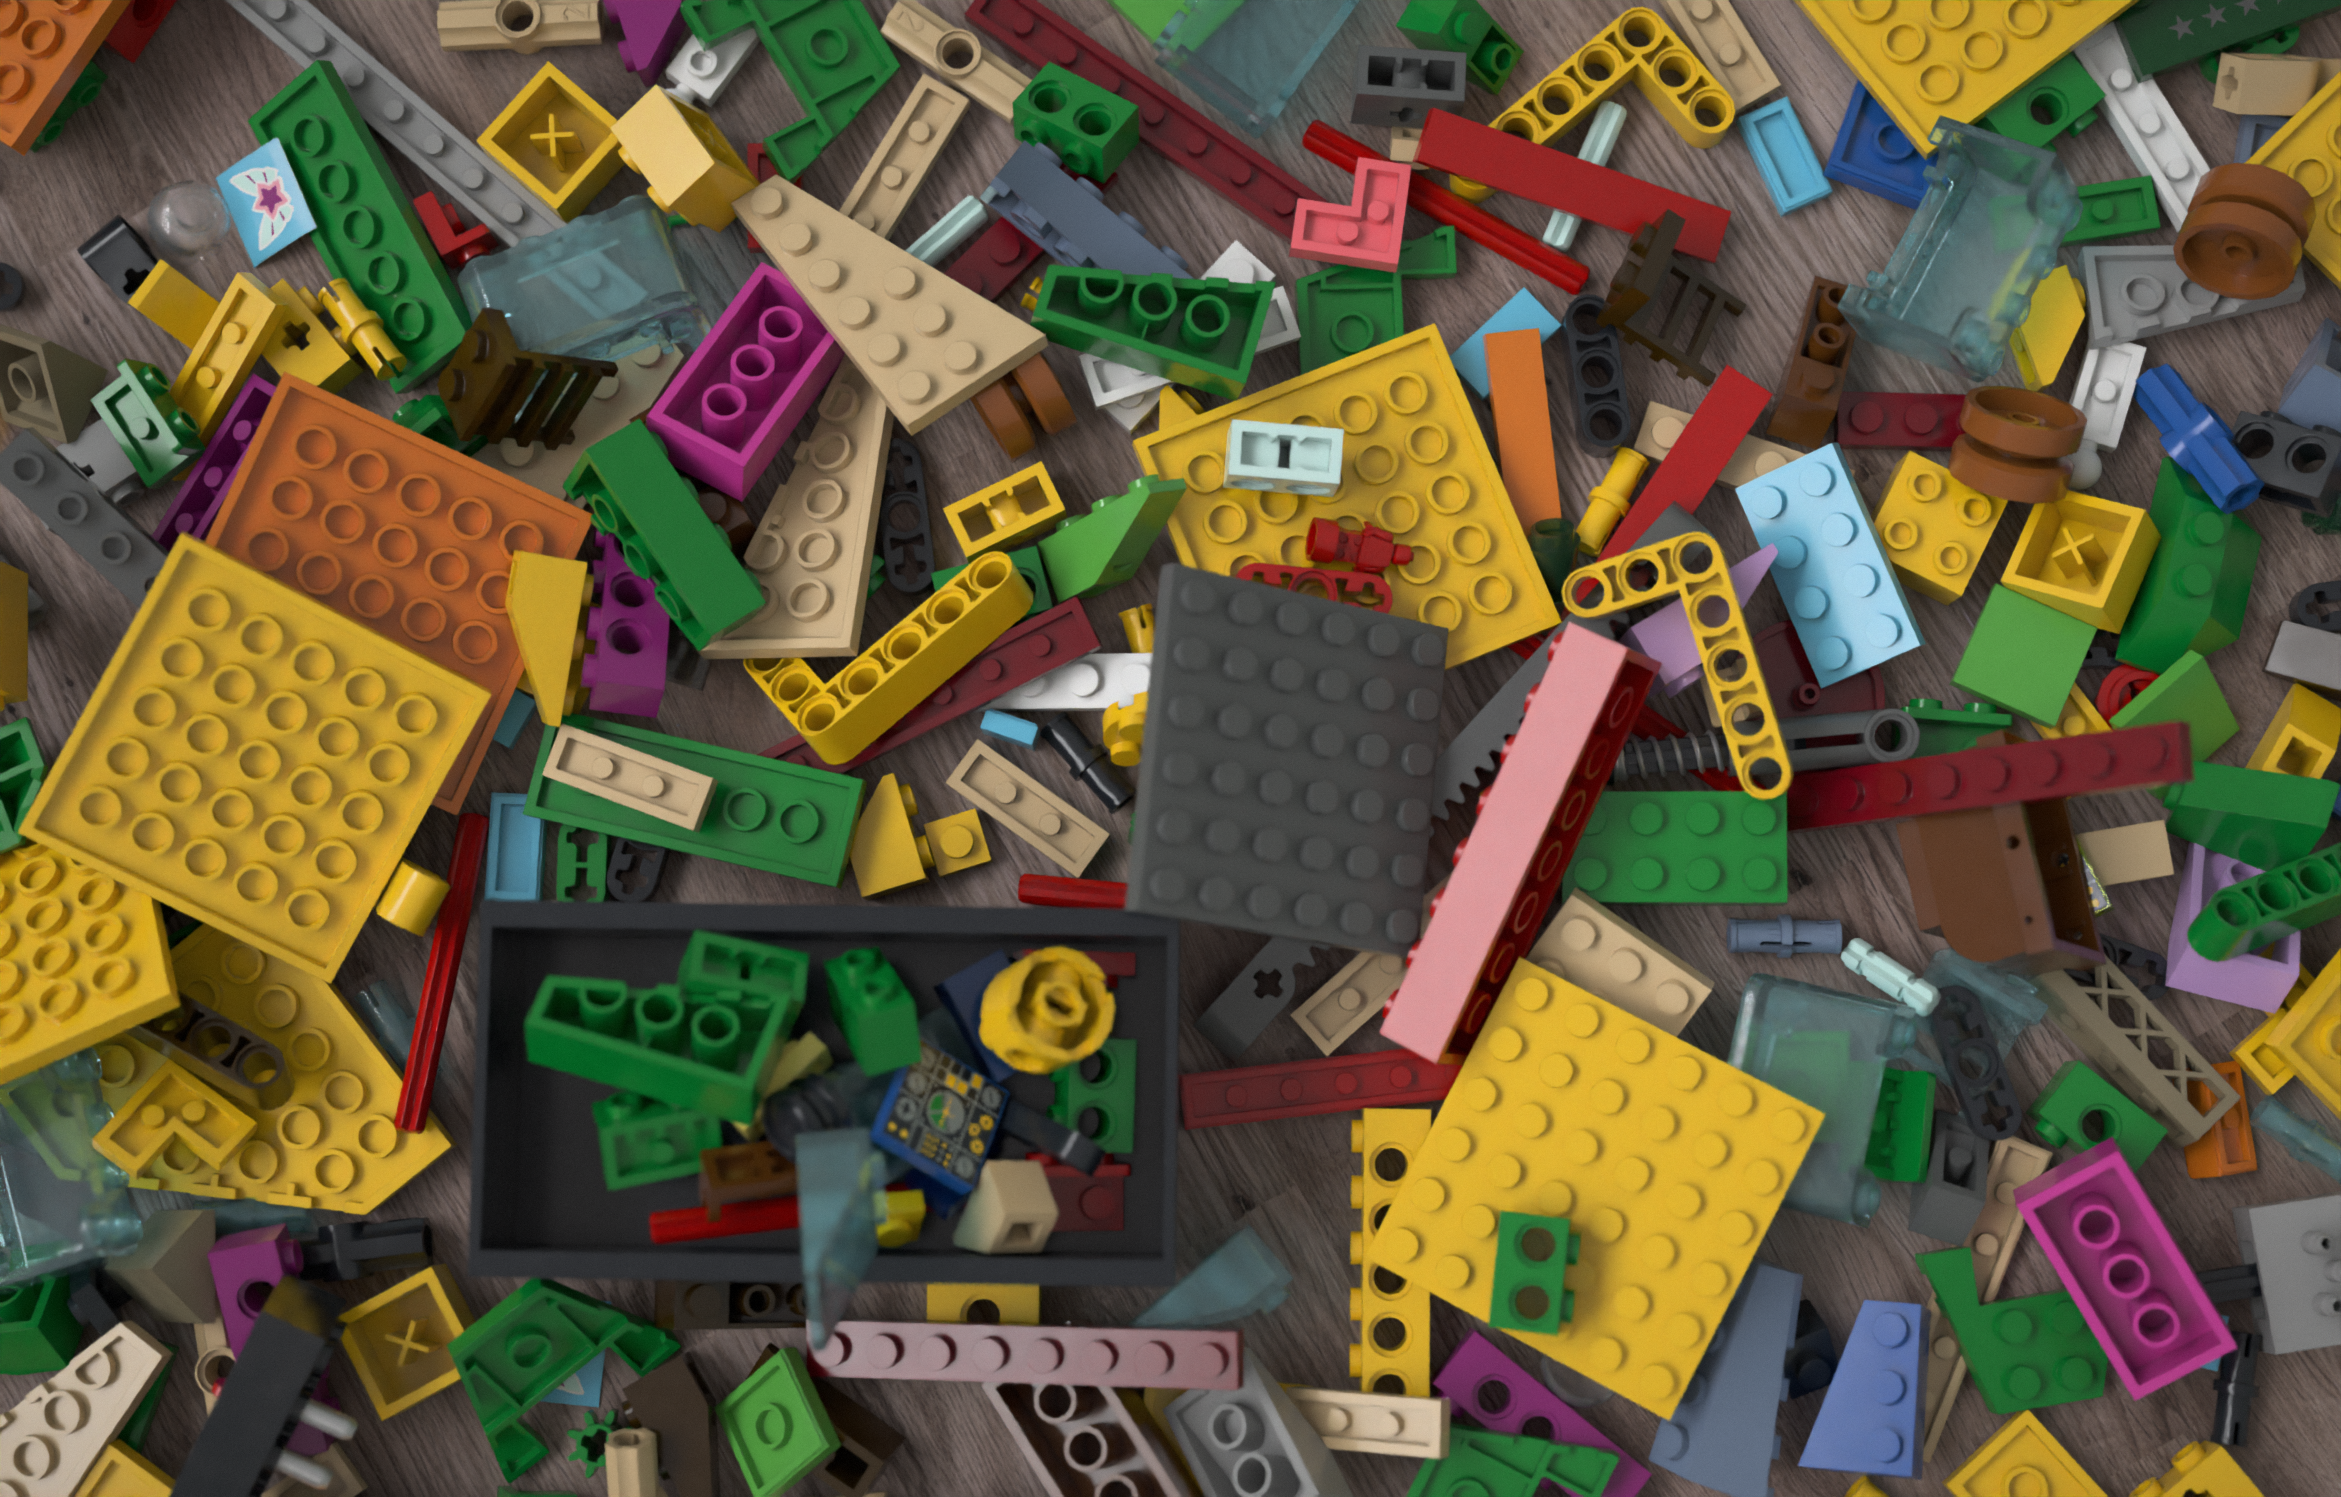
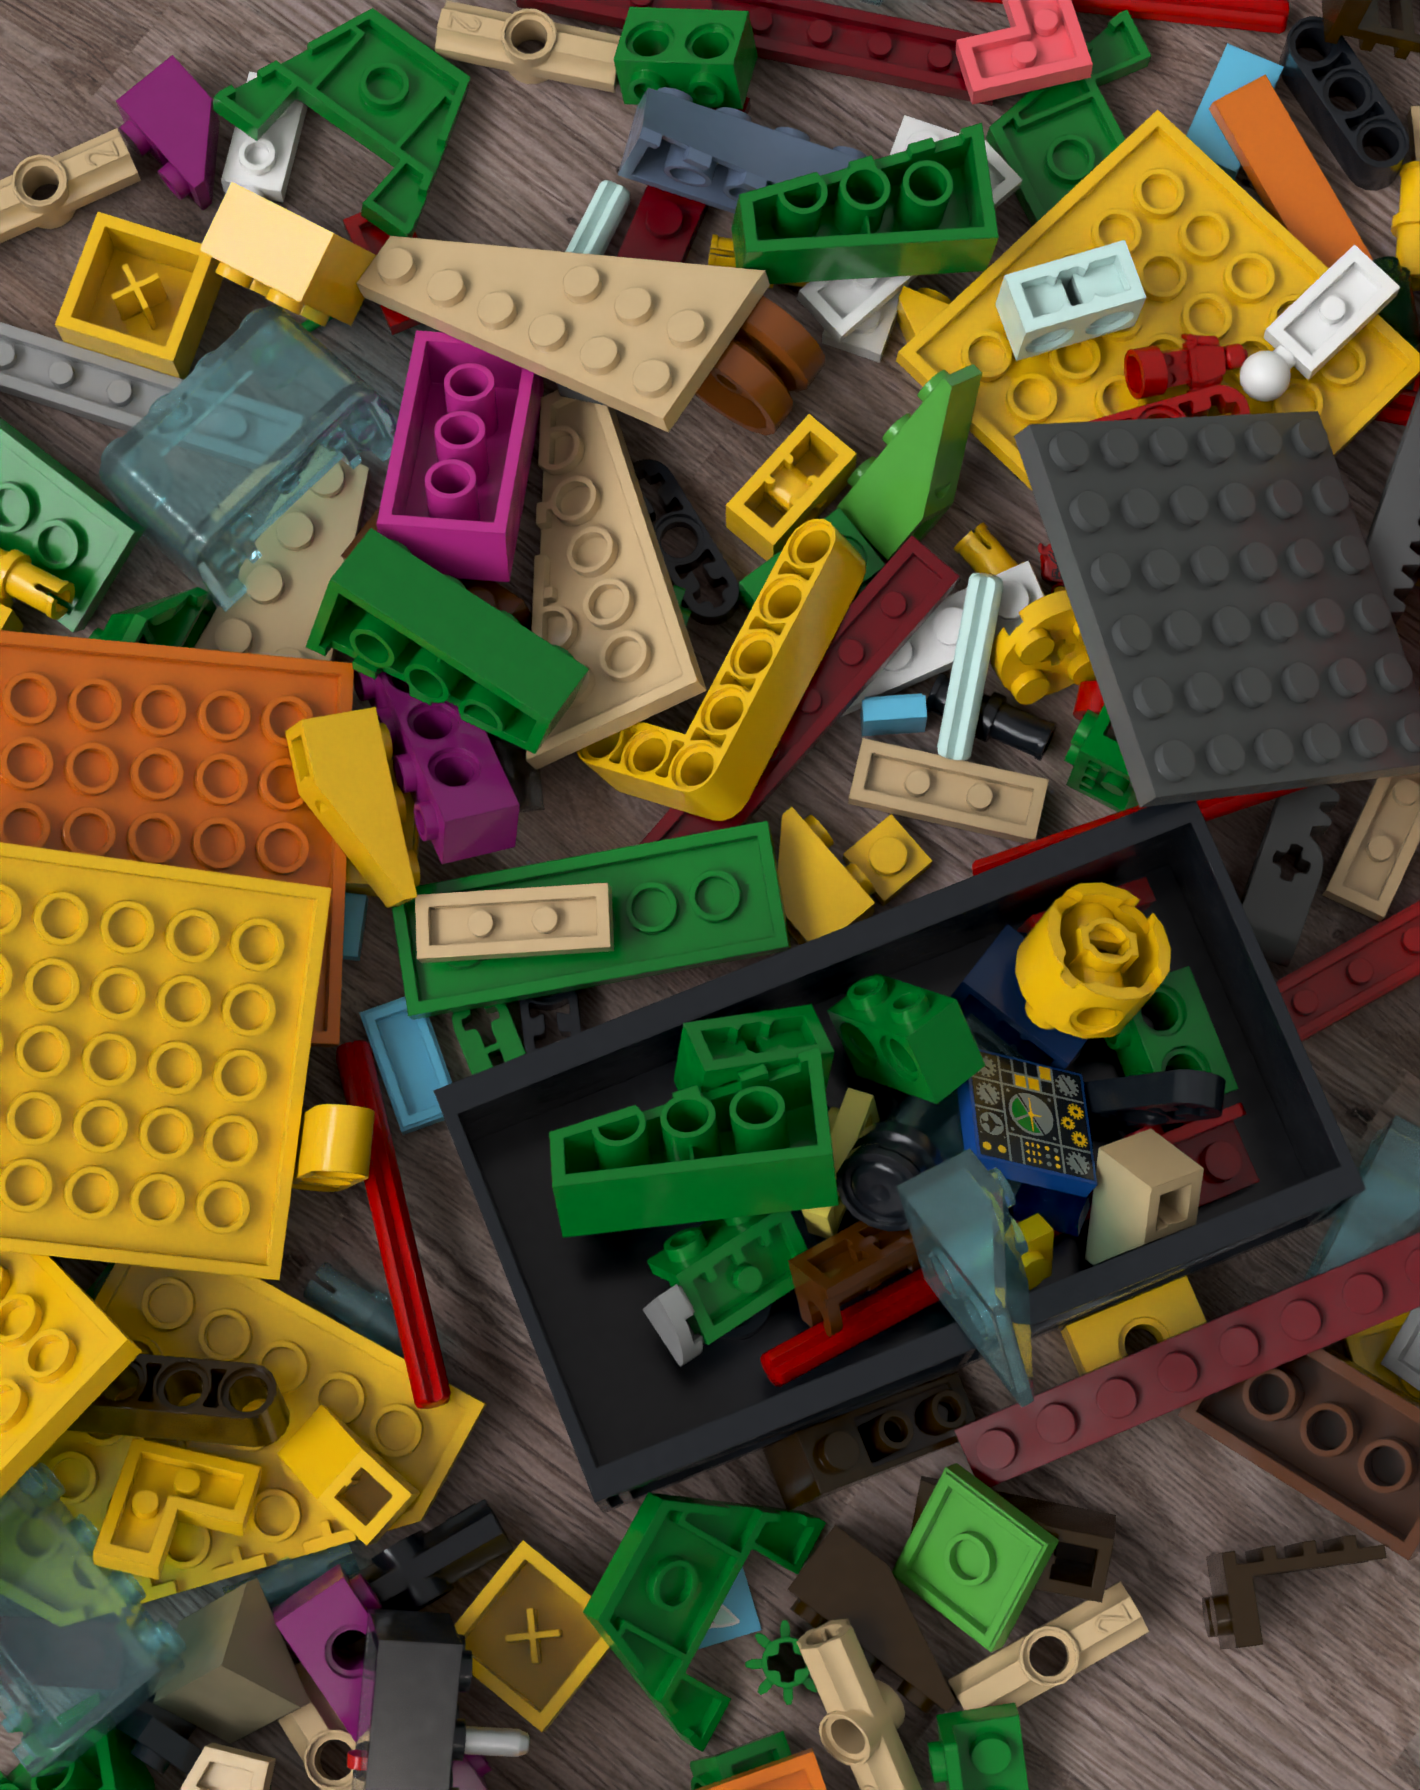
camera: 25 degrees left, 5 degrees down
(316, 1161) = (347, 1476): none -> yellow slope
(445, 226) = (55, 433): red bracket -> none
(494, 378) = (213, 561): dark brown plate -> none
(589, 1160) = (669, 1316): none -> light grey tile
(905, 156) = (517, 162): tan plate -> none
(1081, 719) = (970, 666): none -> light aqua axle
(1480, 557) = (1318, 324): none -> white plate

